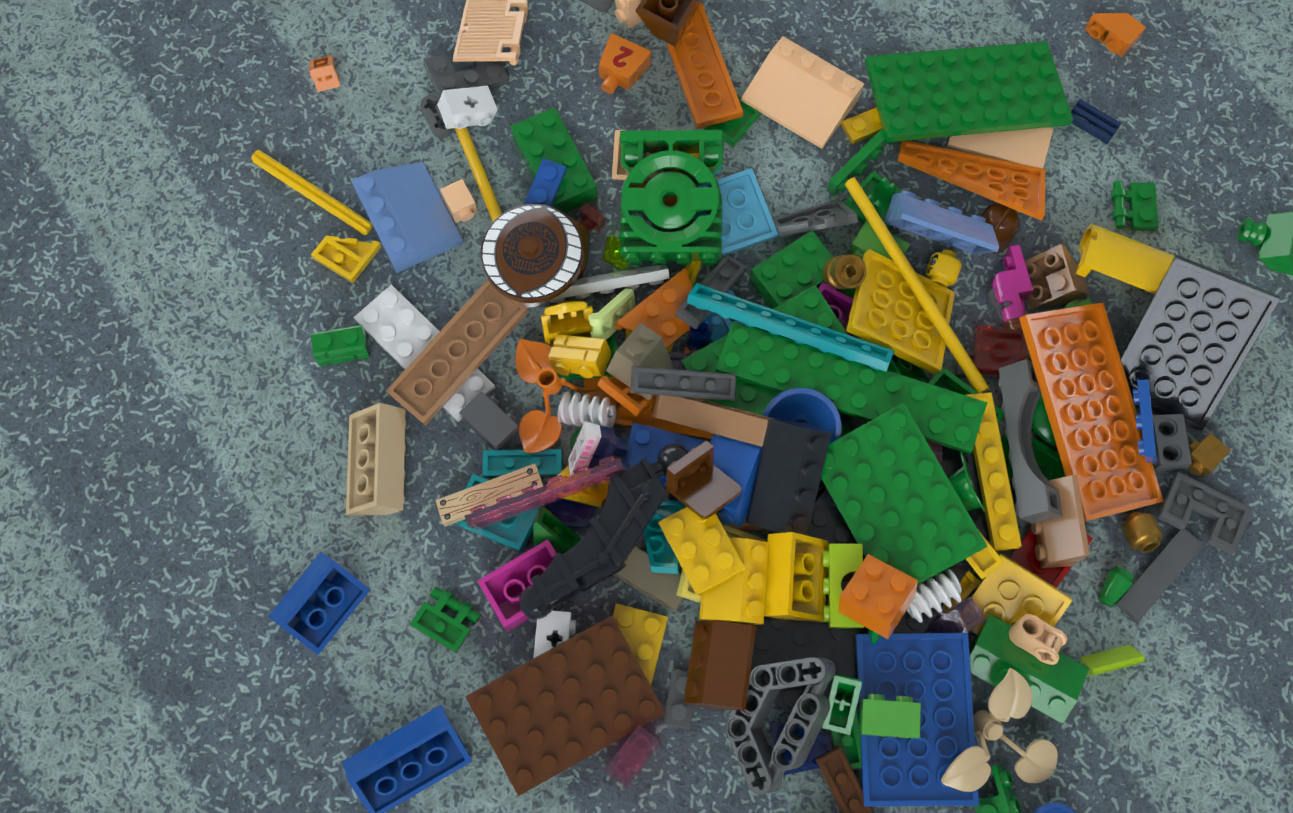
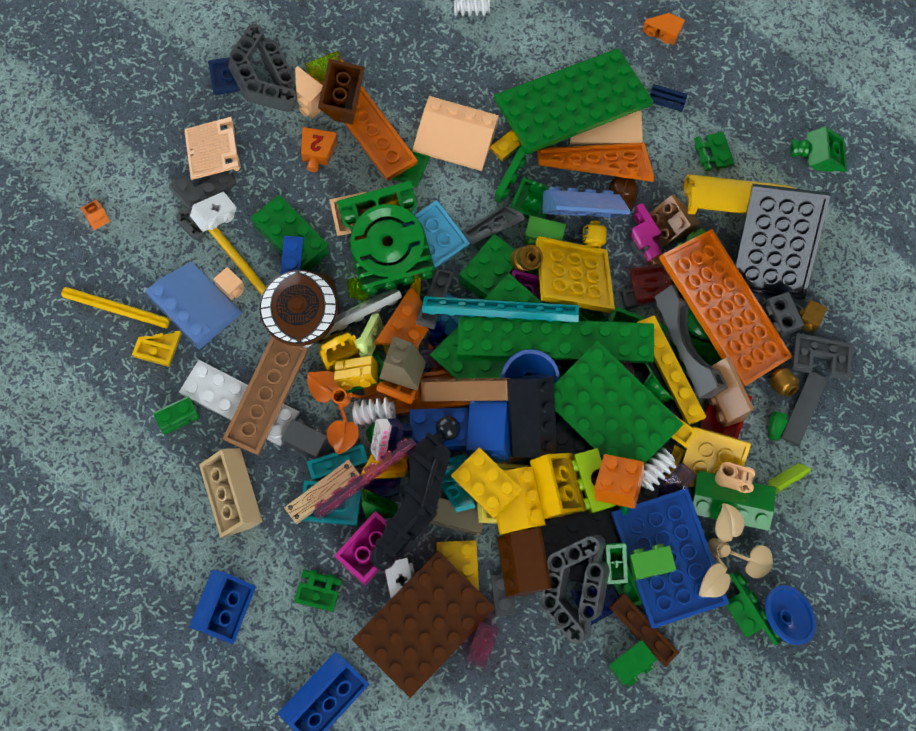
camera: 20 degrees left, 0 degrees up
(591, 218) = (331, 269): clear red plate -> none
(683, 383) = (437, 371): dark grey tile -> none
(701, 483) = (473, 439): reddish brown bracket -> none
(916, 286) = (579, 253): yellow piece -> none
(1145, 421) = (764, 304): blue plate -> none

